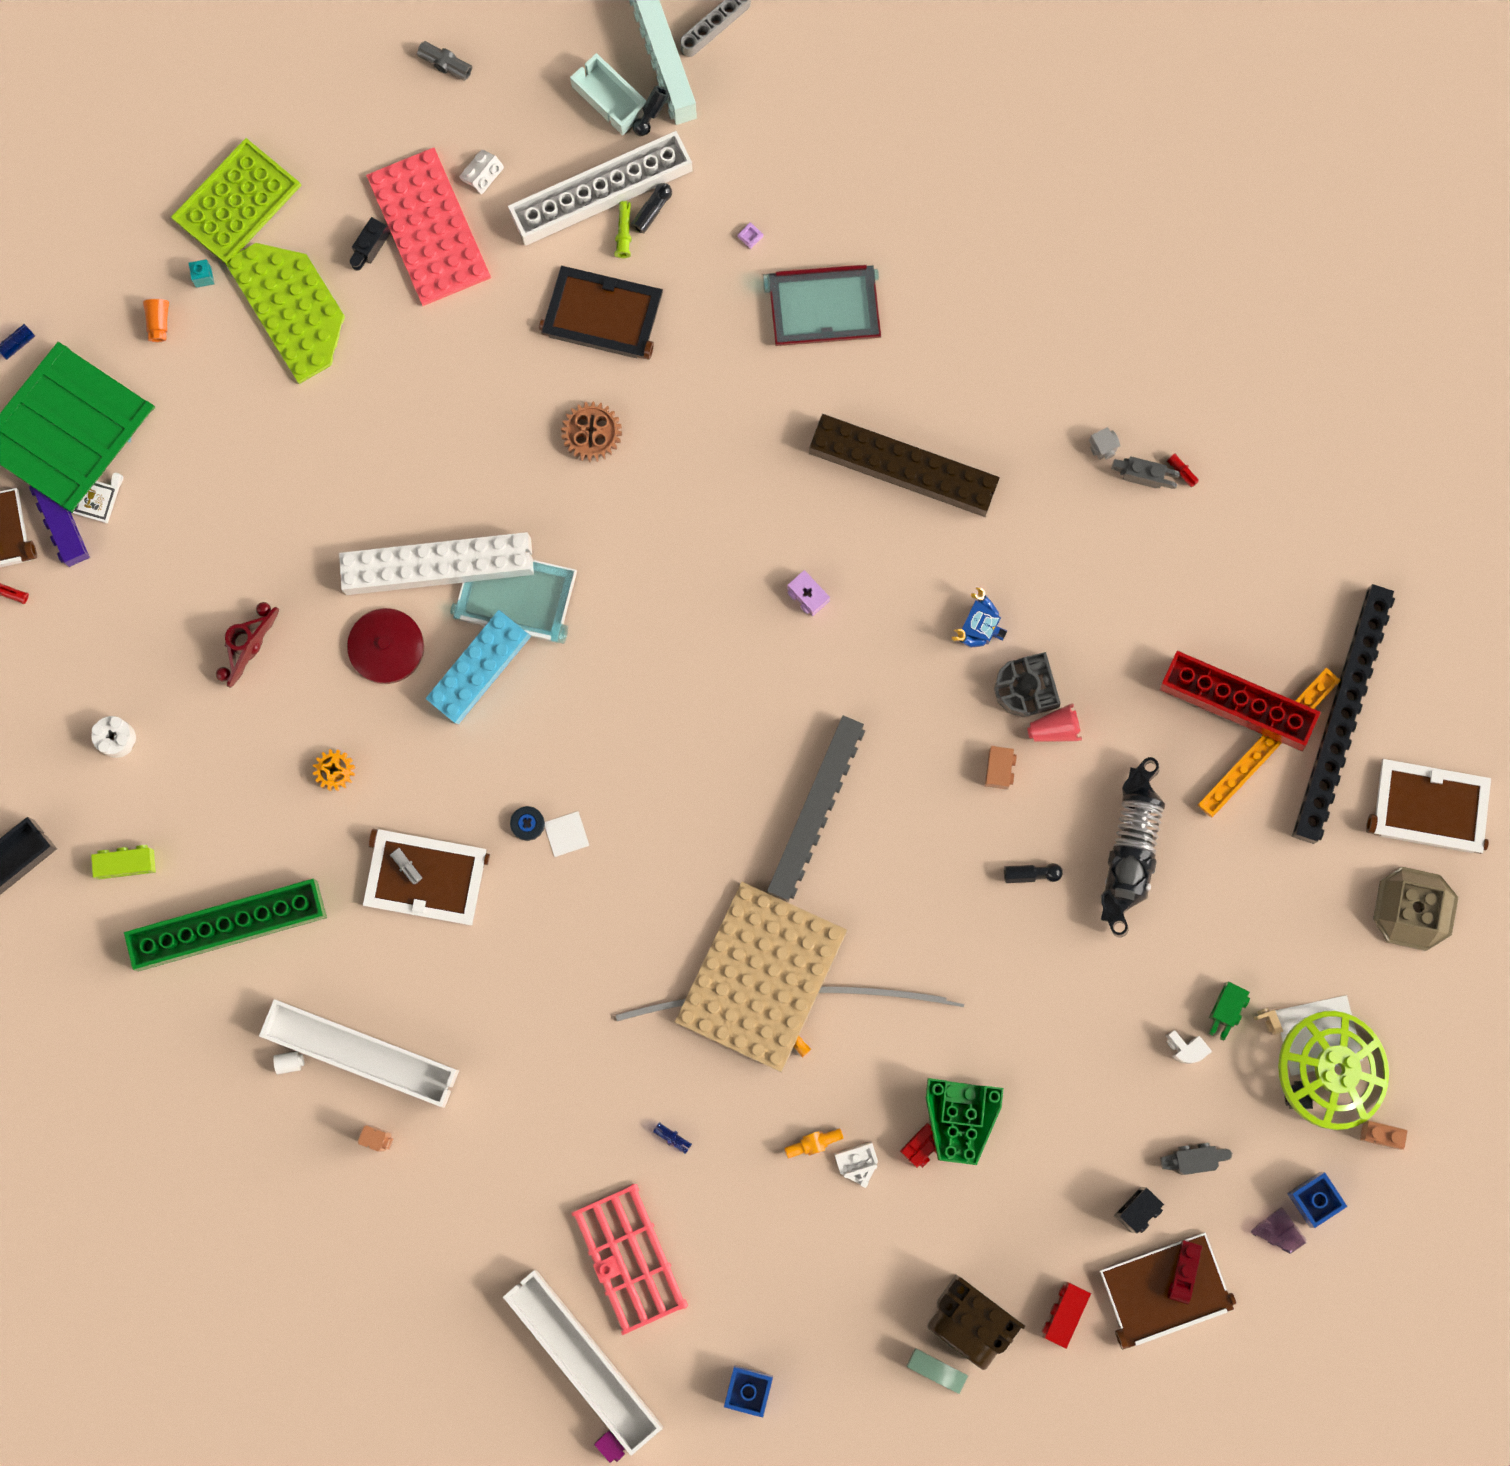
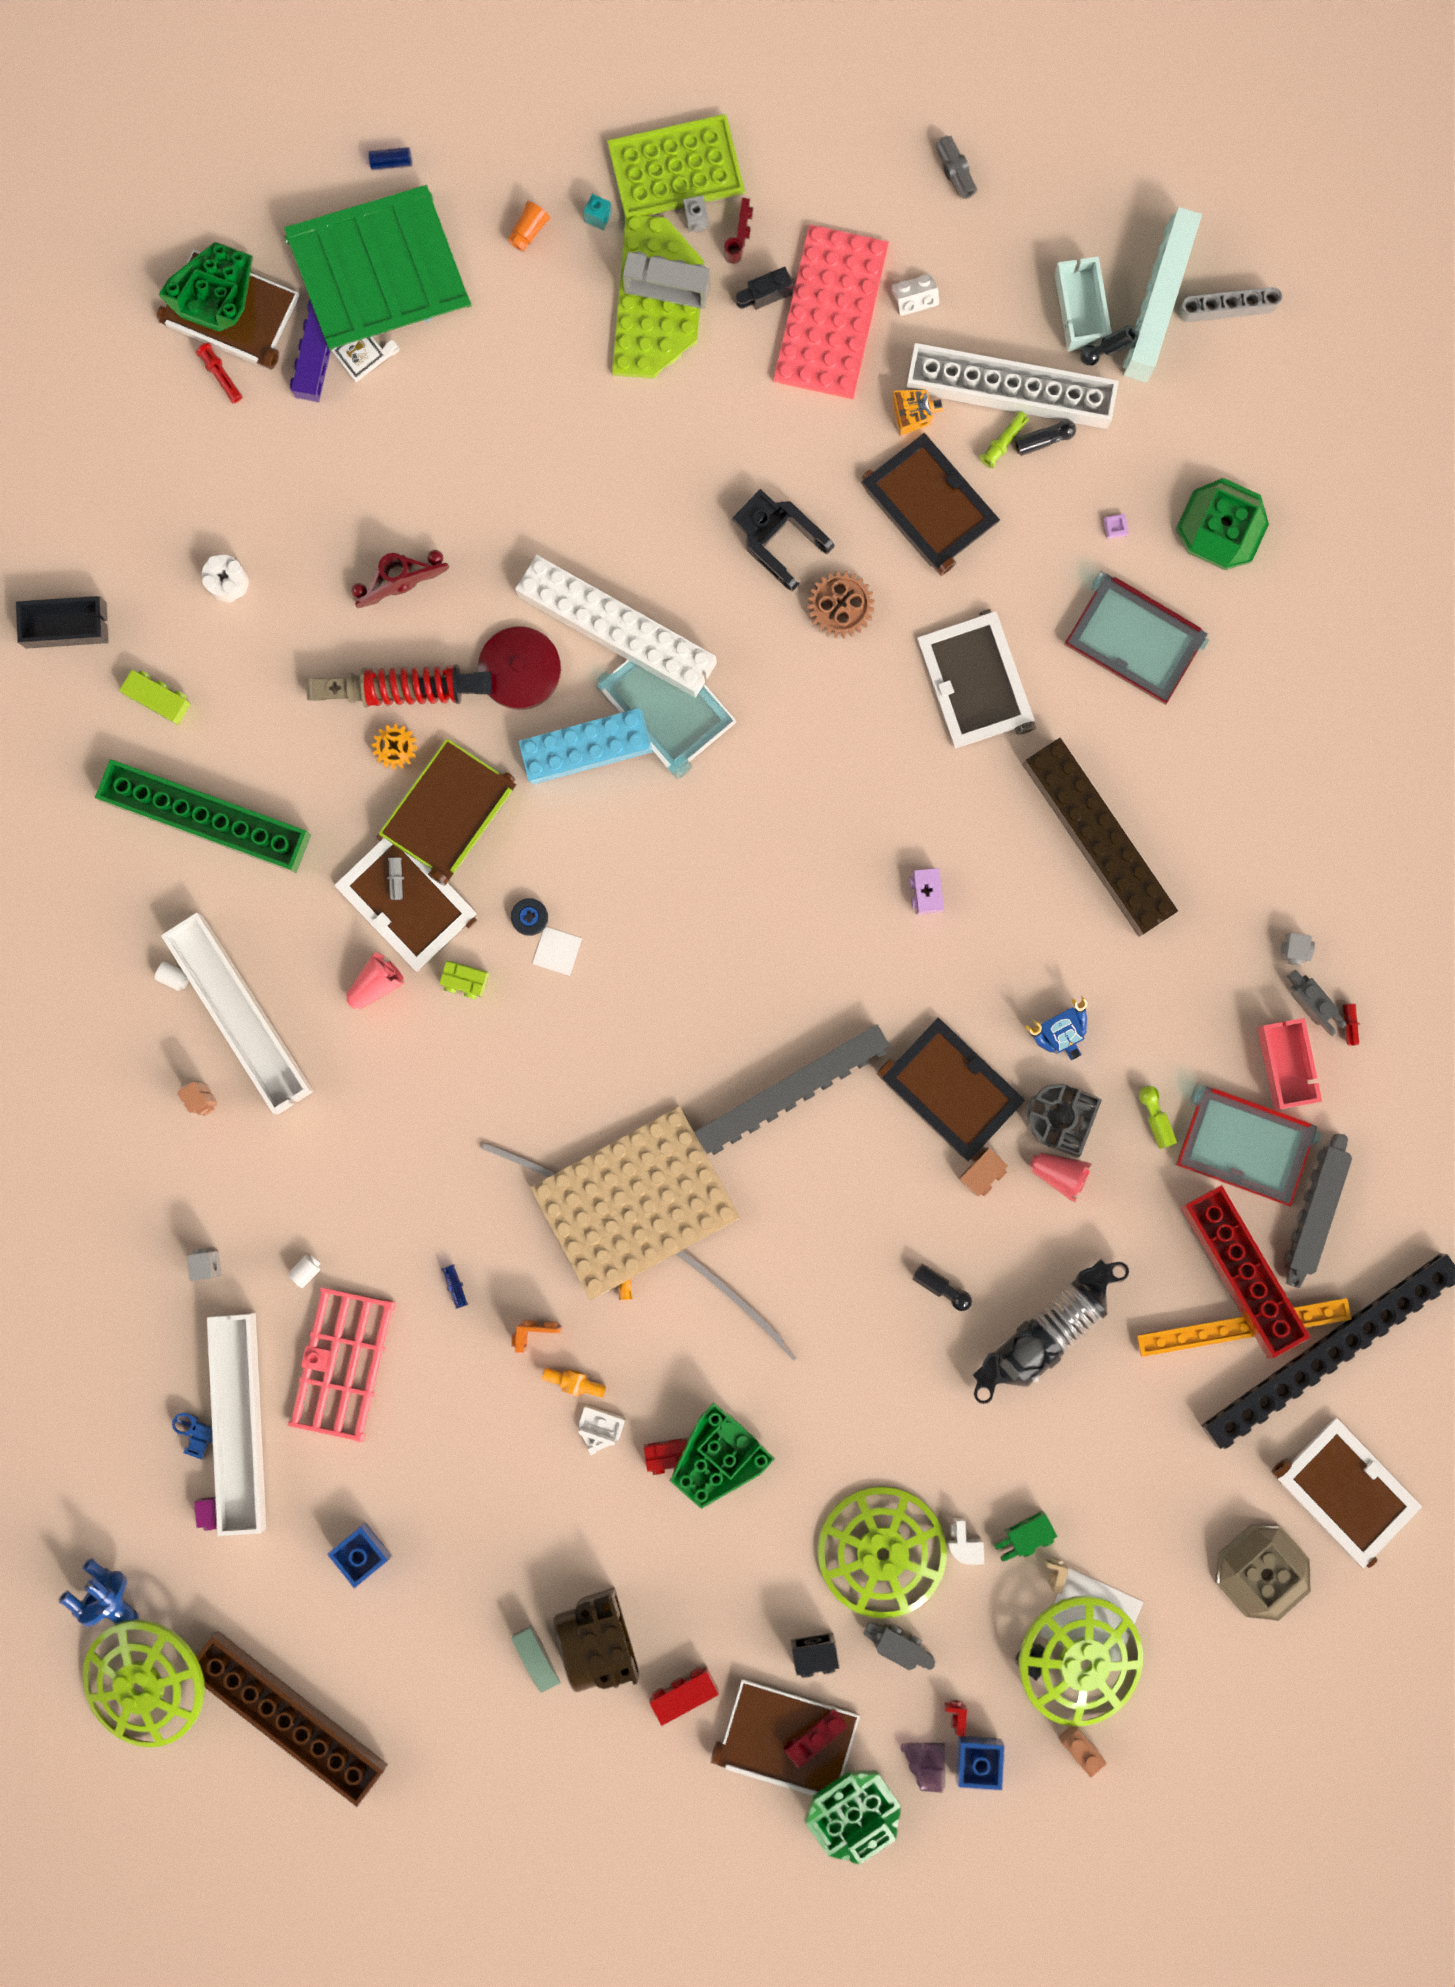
camera: 35 degrees right, 5 degrees up
(276, 224) = (696, 214): none -> light grey brick
(286, 738) = (380, 688): none -> piece
(291, 286) = (666, 280): none -> light grey piece
(321, 214) = (743, 233): none -> dark red plate
(409, 788) = (447, 810): none -> reddish brown door
(446, 955) = (374, 982): none -> coral cone
(470, 1259) = (203, 1264): none -> light grey brick
(489, 409) = (761, 522): none -> black plate
(512, 904) = (463, 979): none -> lime brick
(541, 254) = (914, 409): none -> torso
(550, 1209) = (304, 1270): none -> white brick
(561, 1393) = (200, 1435): none -> blue piece
(731, 416) = (976, 680): none -> clear smoke door
(750, 1139) = (519, 1338): none -> orange bracket
(823, 197) = (1211, 540): none -> green piece
(932, 724) = (952, 1089): none -> reddish brown door
(1096, 637) = (1158, 1120): none -> lime piece
(1123, 1109) = (879, 1538): none -> lime dish
(1159, 529) = (1289, 1063): none -> coral piece
(1173, 610) = (1246, 1144): none -> clear light blue door
(1259, 620) = (1318, 1210): none -> dark grey hinge
(1271, 1311) = (857, 1833): none -> green piece
(1279, 1180) = (959, 1720): none -> red bracket

